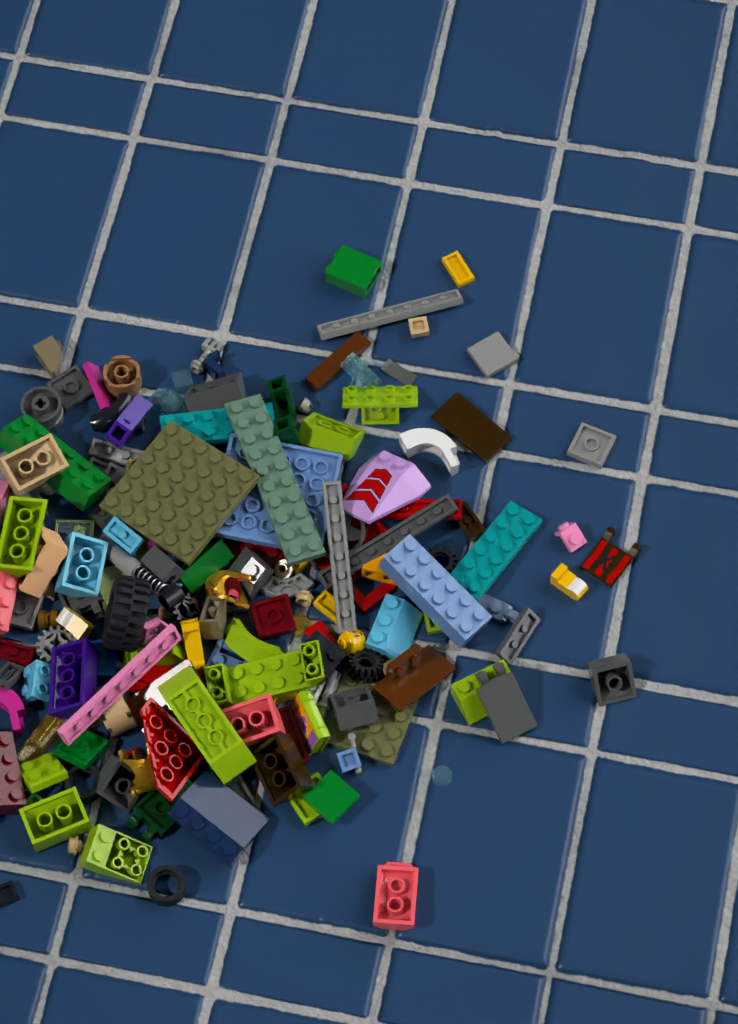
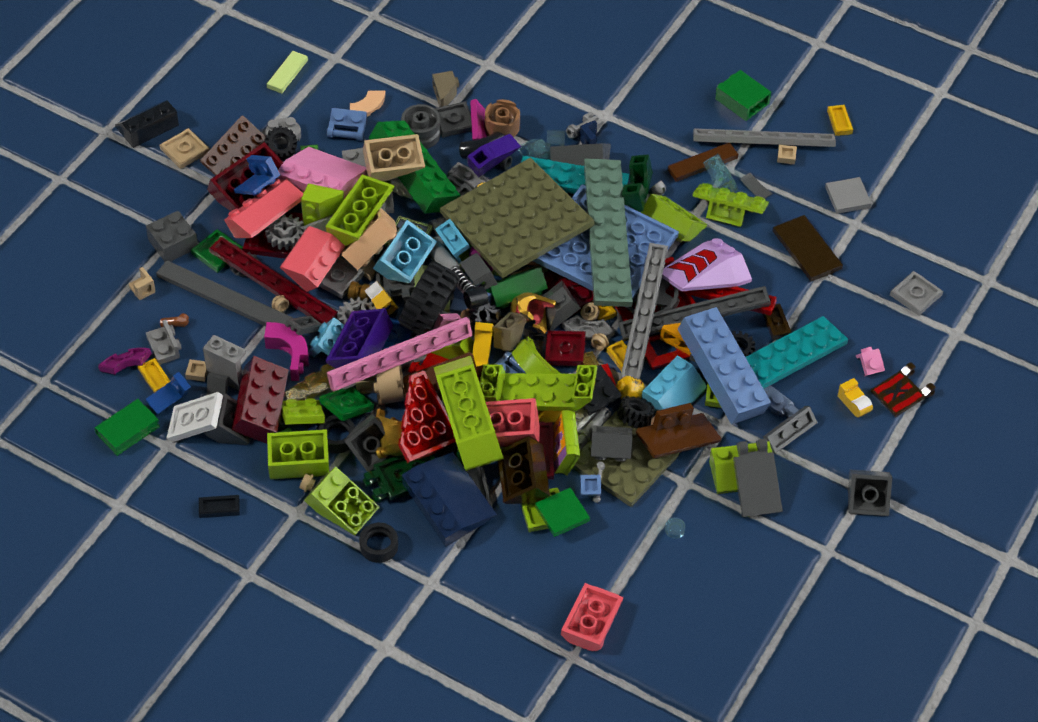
camera: 15 degrees right, 10 degrees down
(433, 441) = (766, 247): white arch -> none

